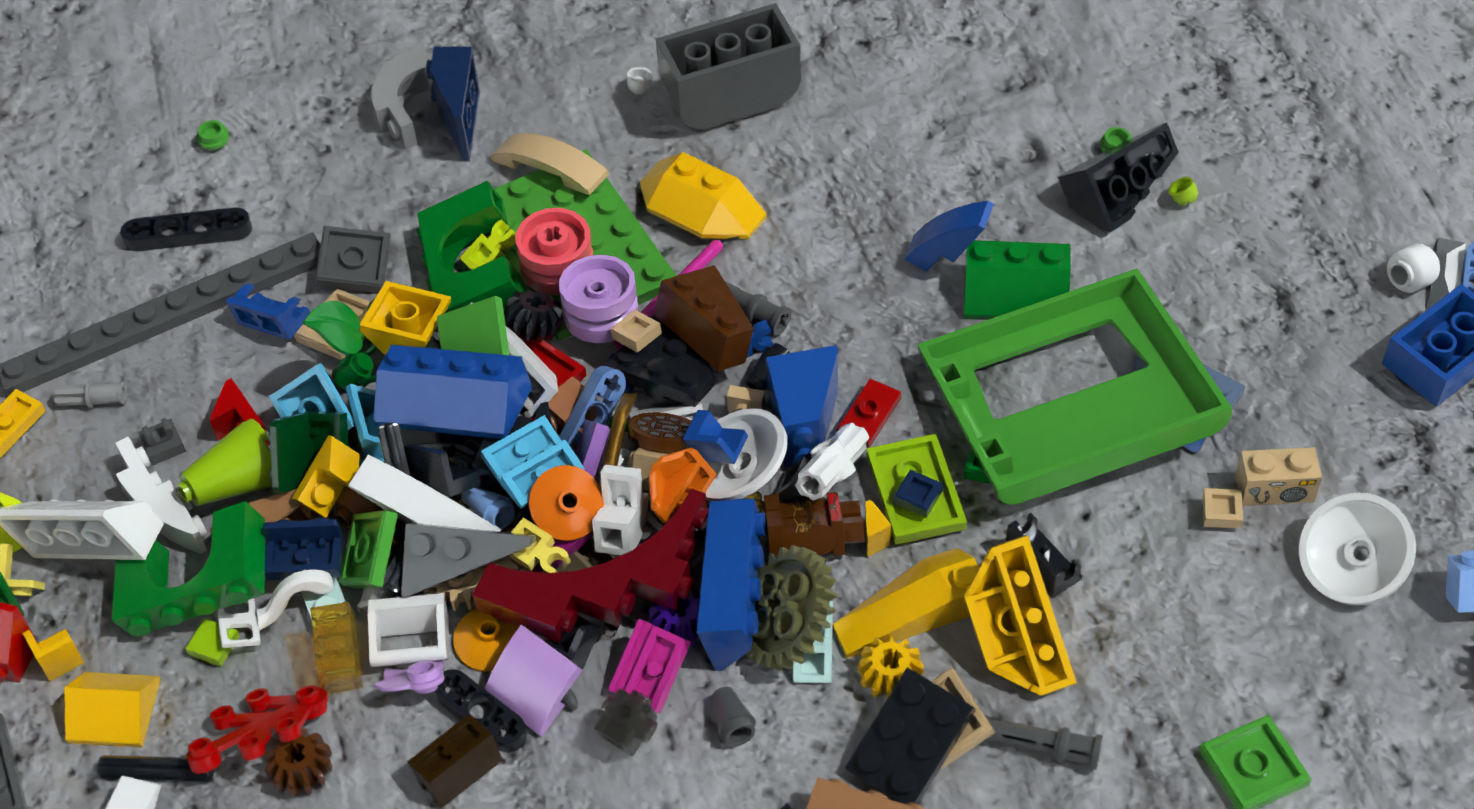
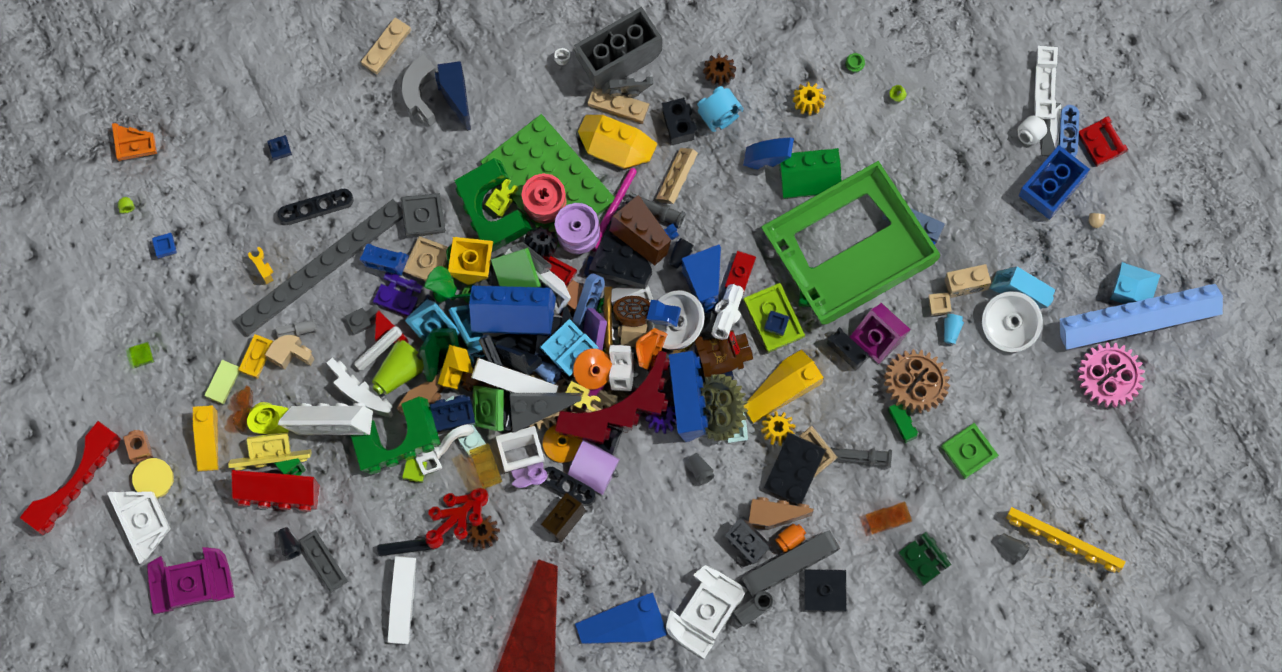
camera: 10 degrees left, 20 degrees up
(55, 654) = (332, 490): yellow panel -> none
(59, 418) = (285, 348): none -> tan brick
(68, 299) = (264, 269): none -> yellow plate
(109, 708) = (372, 516): yellow slope -> none
(160, 145) = (279, 147): none -> dark blue tile
(161, 441) = (347, 352): dark grey tile -> none
(200, 395) = (360, 320): none -> dark grey plate
(210, 435) = (378, 348): none -> white axle
(212, 135) = (310, 136): bright green plate -> none
(263, 370) = (396, 300): none -> dark purple plate
(370, 38) = (386, 45): none -> tan plate
(516, 332) = (540, 263): none -> dark grey tile
(553, 156) = (522, 127): tan slope -> none
(627, 720) = (644, 489): clear smoke brick -> none
(636, 331) = (603, 247): tan plate -> none
(650, 663) = (652, 449): dark pink plate -> none
(716, 152) = (619, 105): none -> tan plate
(732, 121) = (626, 86): none -> dark grey wing
(744, 398) = (672, 279): tan plate -> none
(788, 258) = (676, 175): none -> tan plate
(807, 184) = (674, 122): none -> black brick
(876, 529) = (757, 346): yellow slope -> none
(878, 169) = (719, 109): none -> medium azure brick
(889, 124) = (719, 63): none -> reddish brown gear
(1017, 620) = (841, 396): yellow wedge -> none
(1031, 179) = (816, 98): none -> yellow gear
(1106, 537) = (880, 333): none -> magenta slope
(1116, 180) = (856, 92): black wedge -> none
(1130, 694) = (903, 422): none -> green piece
(1178, 647) = (932, 392): none -> medium nougat gear
(1242, 548) = (952, 328): none -> medium azure cone
(1378, 477) = (1020, 281): none -> medium azure slope
(1441, 202) = (1045, 82): none -> white slope

